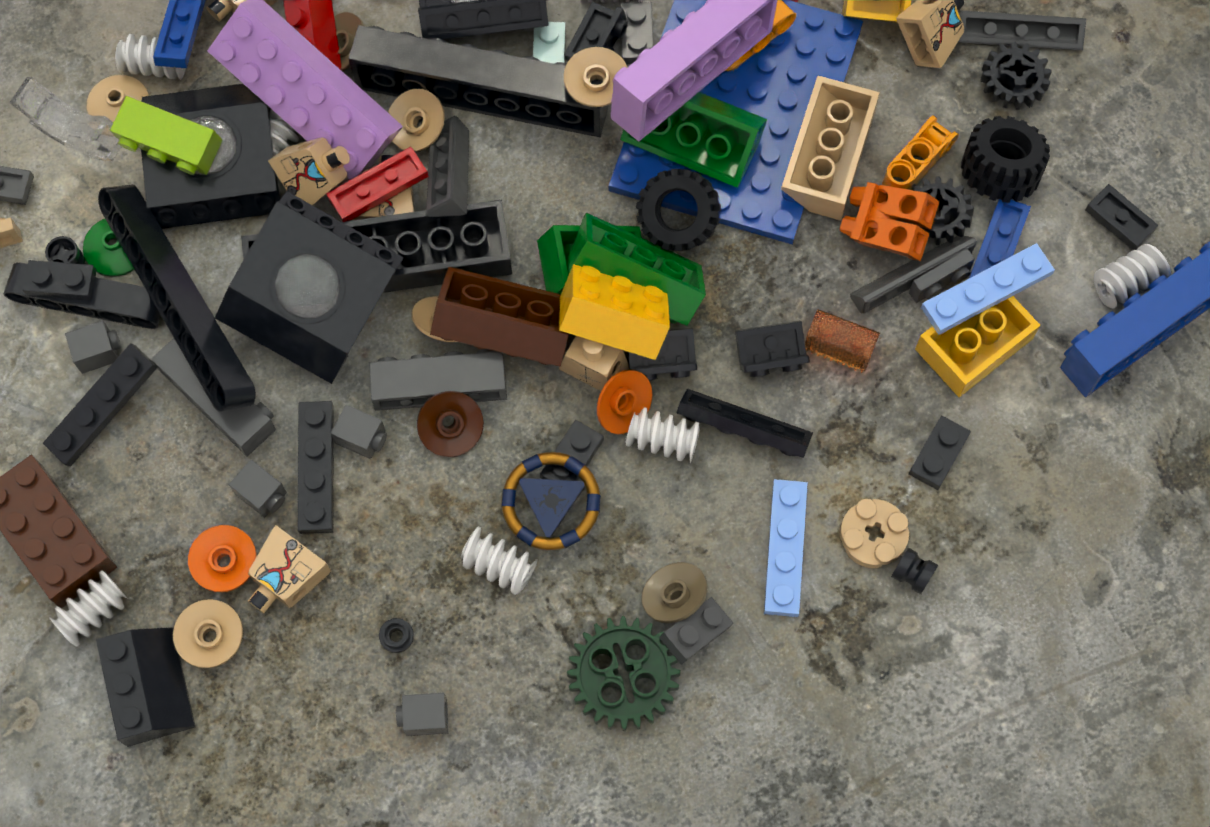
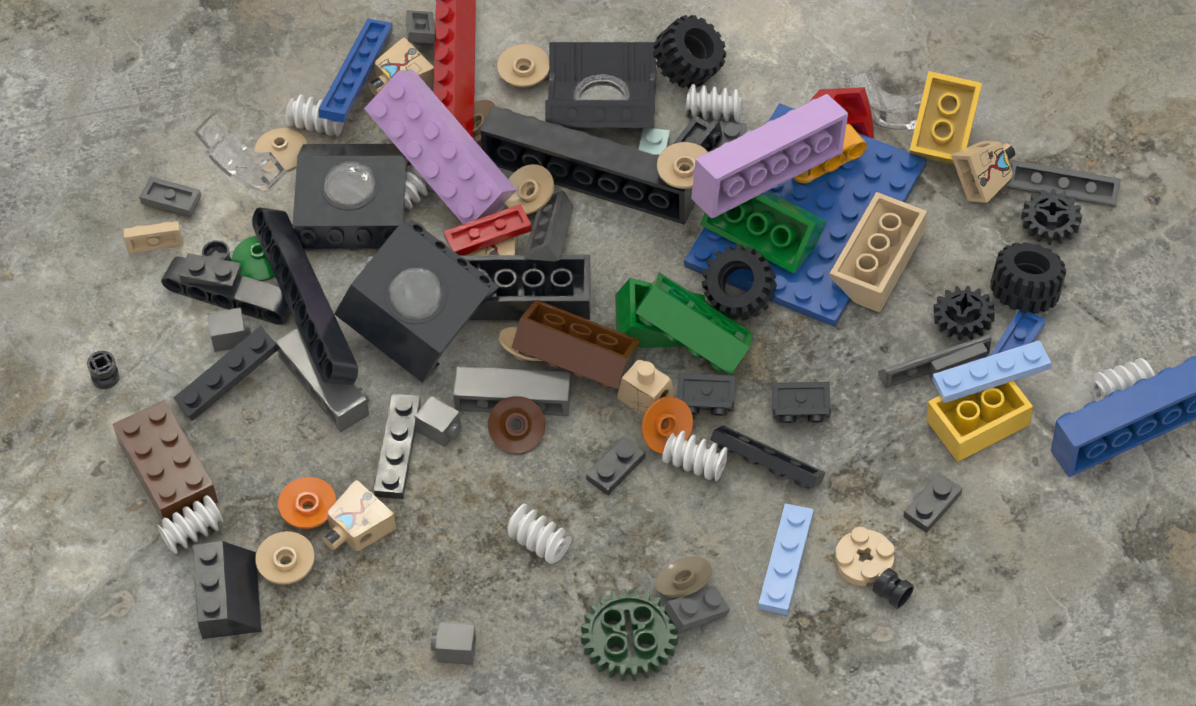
camera: 10 degrees right, 15 degrees down
(165, 136) = (318, 169): lime brick -> none
(258, 489) = (346, 454): dark grey brick -> none
(310, 168) = (436, 210): tan torso -> none
(391, 626) = (442, 574): black plate -> none
(551, 500) = (591, 492): piece -> none
(614, 311) = (668, 345): yellow brick -> none
(841, 340) = (862, 403): clear orange brick -> none
(878, 216) = (921, 311): orange hips -> none
(929, 143) = (954, 270): light orange piece -> none
(1121, 217) = (1124, 337): black plate -> none

